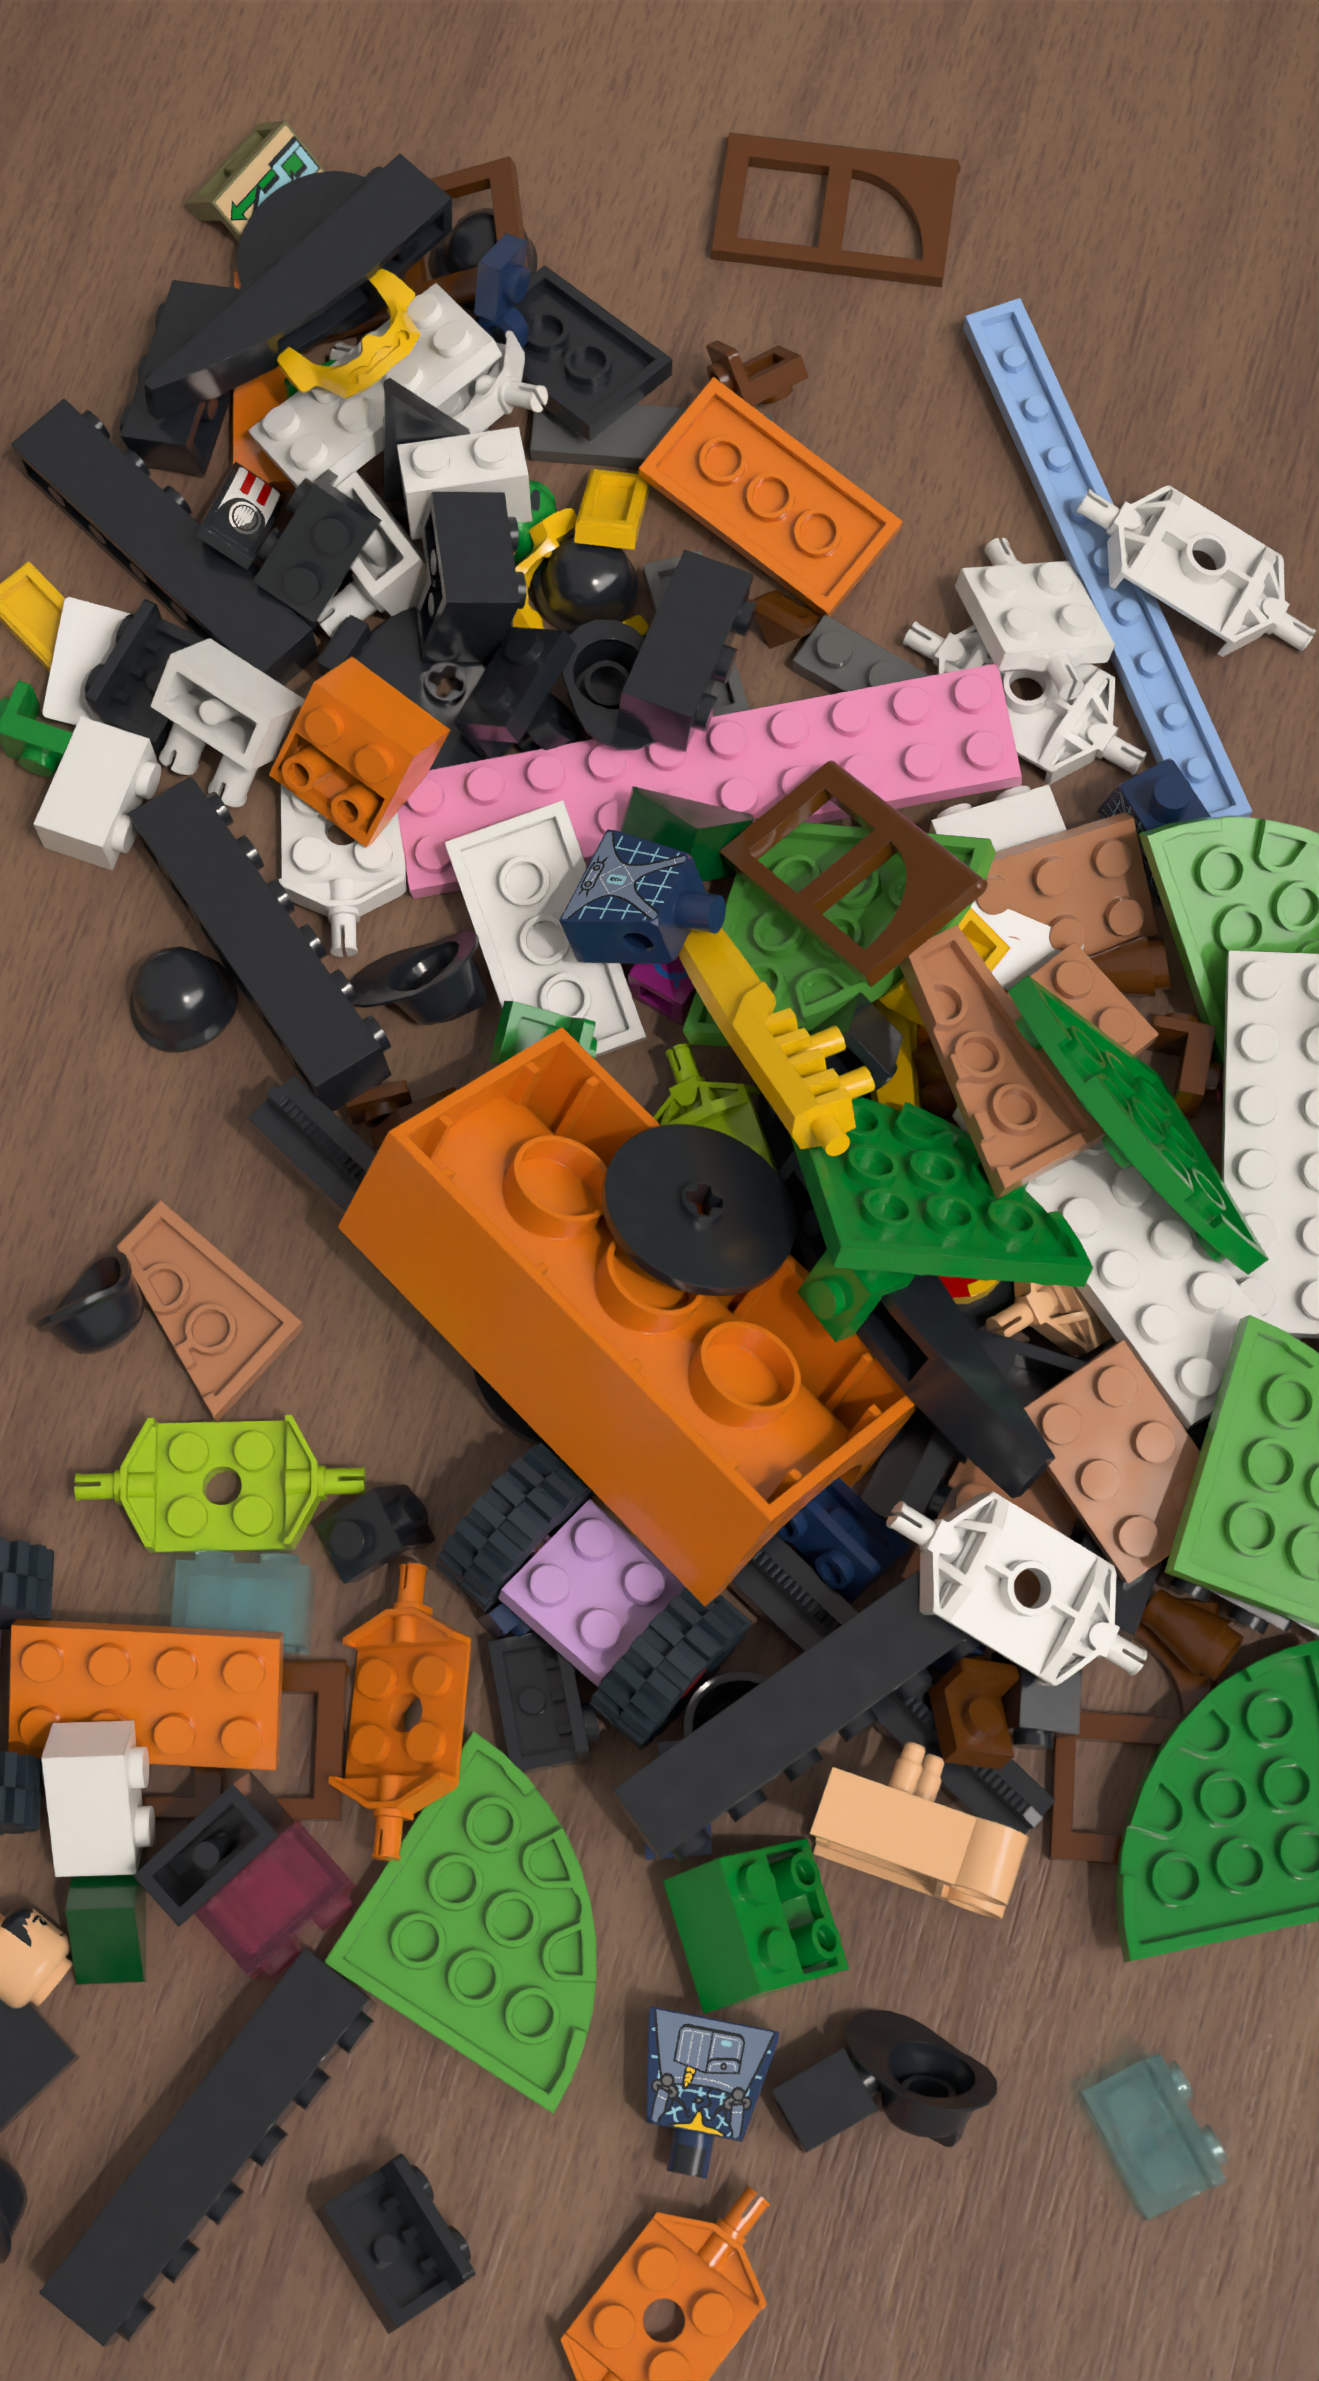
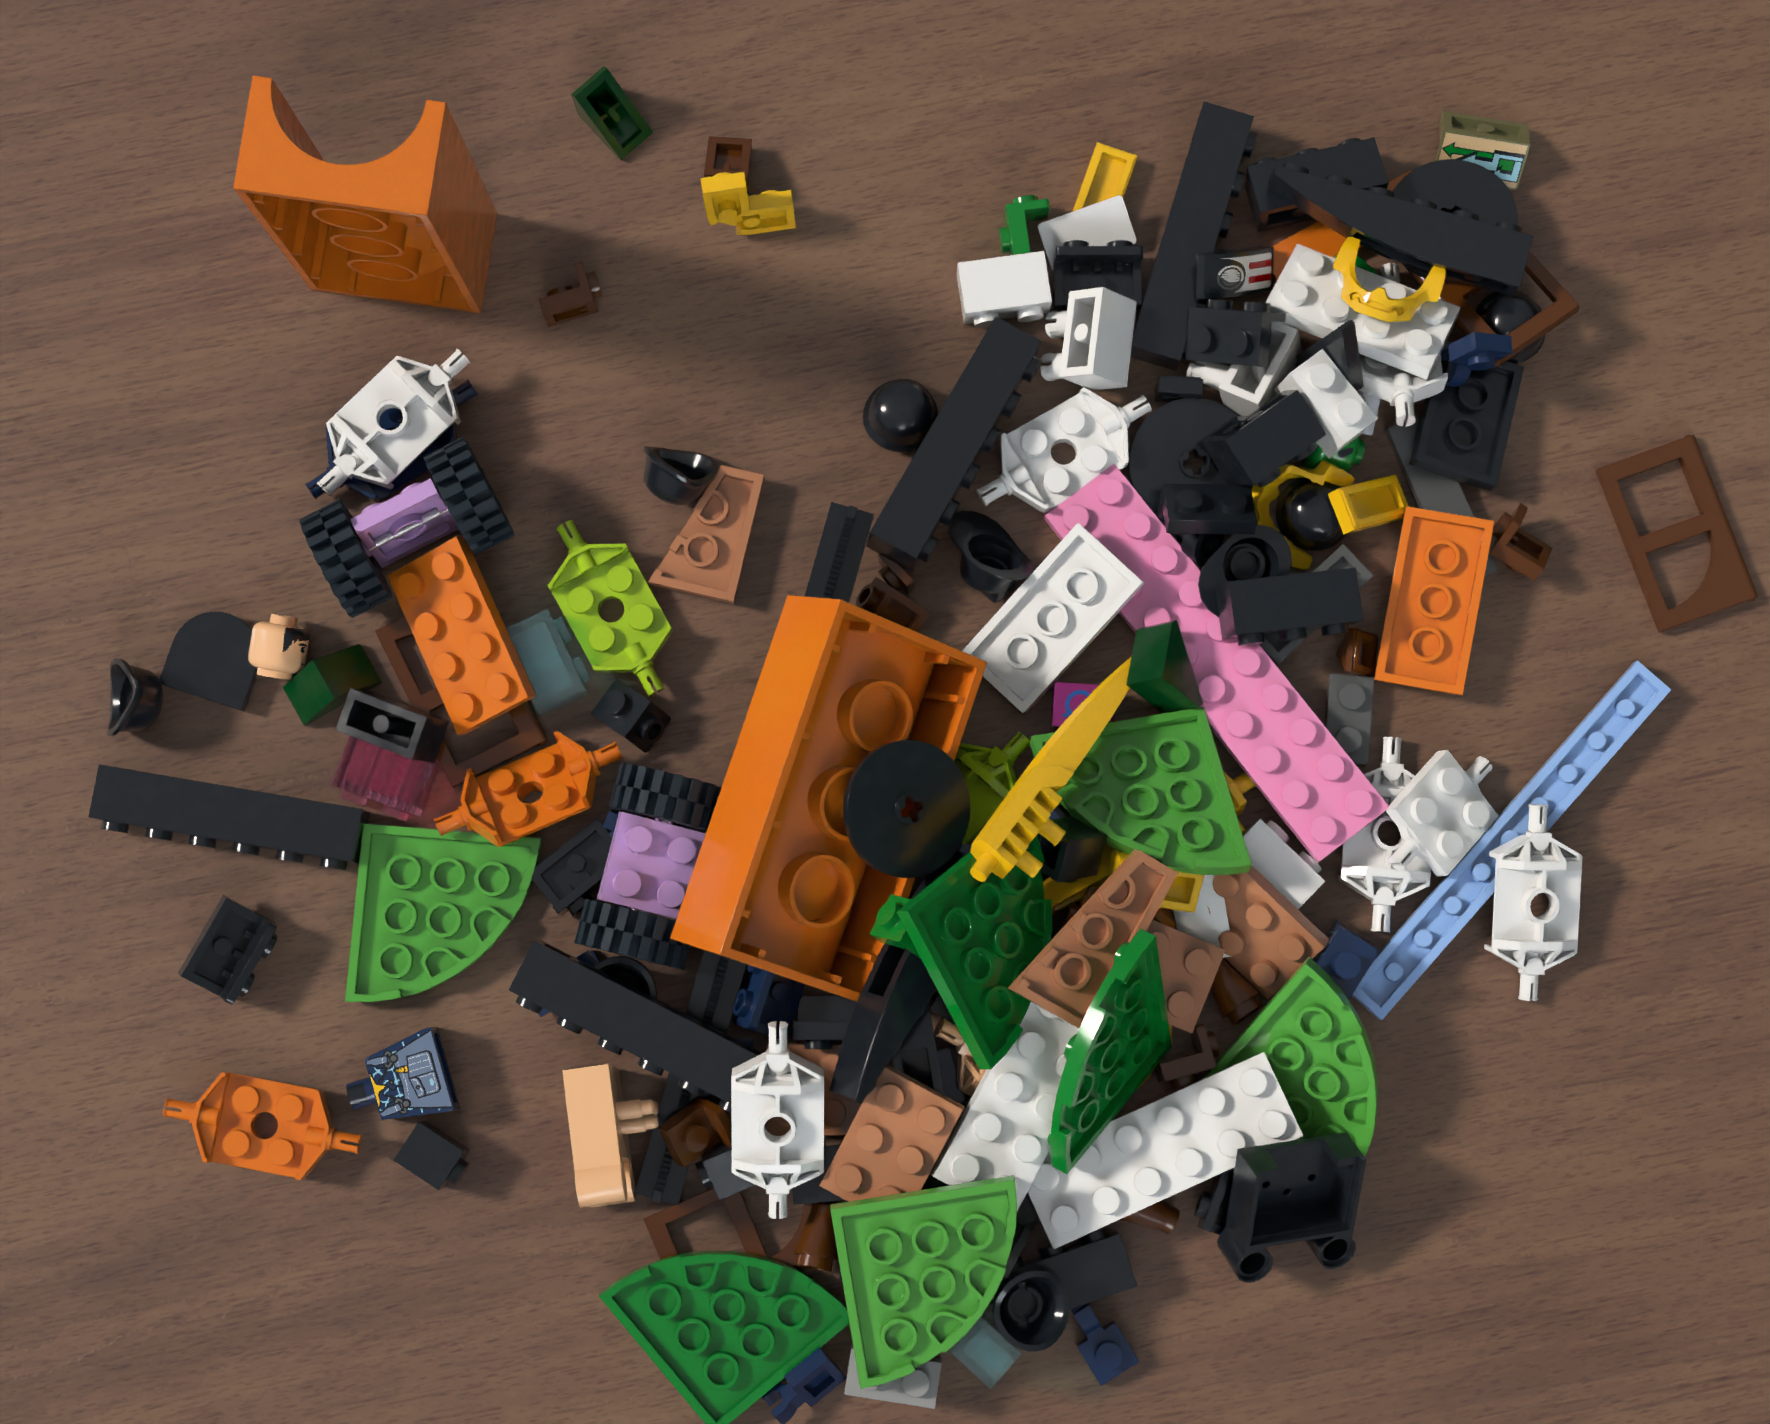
camera: 60 degrees right, 10 degrees up
(96, 1798) = (385, 641): white brick -> none
(358, 750) = (1111, 436): orange slope -> none
(525, 1025) = (983, 641): green bracket -> none
(638, 903) = (1094, 666): dark blue torso -> none
(755, 1924) = (511, 1064): green slope -> none
(922, 2077) = (476, 1203): black piece -> none
(936, 880) = (1198, 846): reddish brown window -> none
(1155, 2135) = (510, 1358): clear light blue bracket -> none

